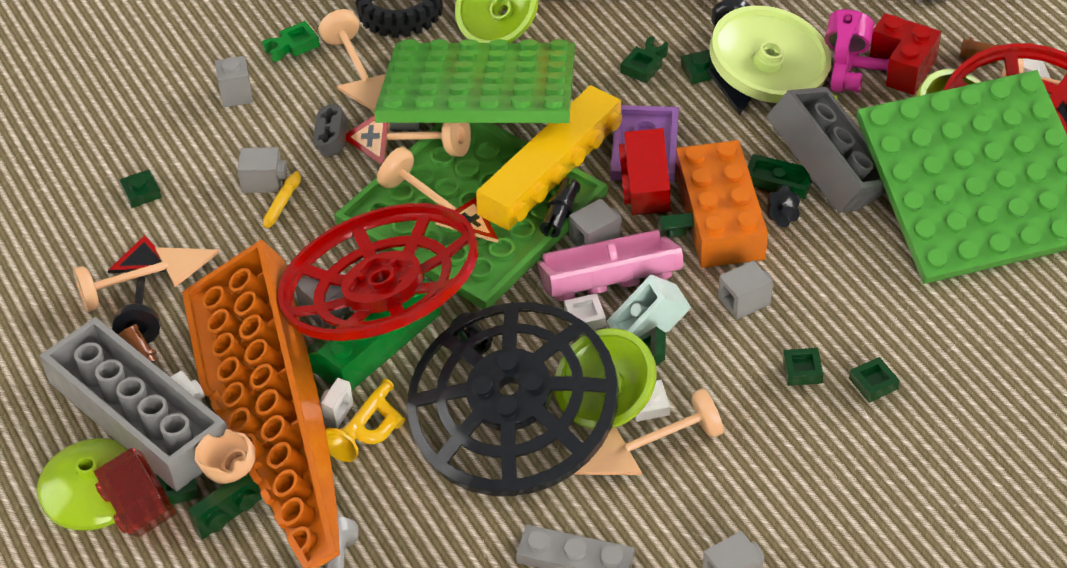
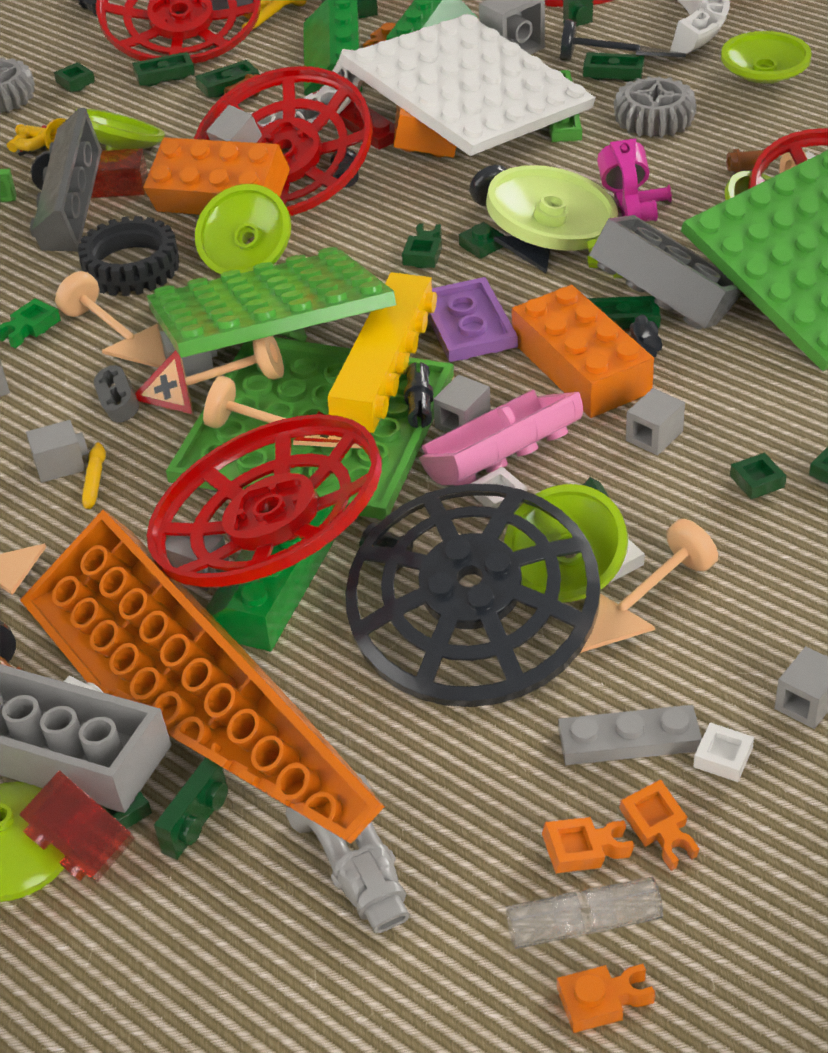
camera: 20 degrees left, 5 degrees down
(225, 457) = (178, 748): light nougat hair -> none
(336, 403) = (270, 654): white plate -> none
(342, 440) = (308, 684): yellow piece -> none
(645, 171) = (496, 334): red piece -> none
(651, 306) = (569, 461): light aqua slope -> none
(675, 225) = (547, 380): dark green plate -> none
(910, 51) = (684, 169): red brick -> none

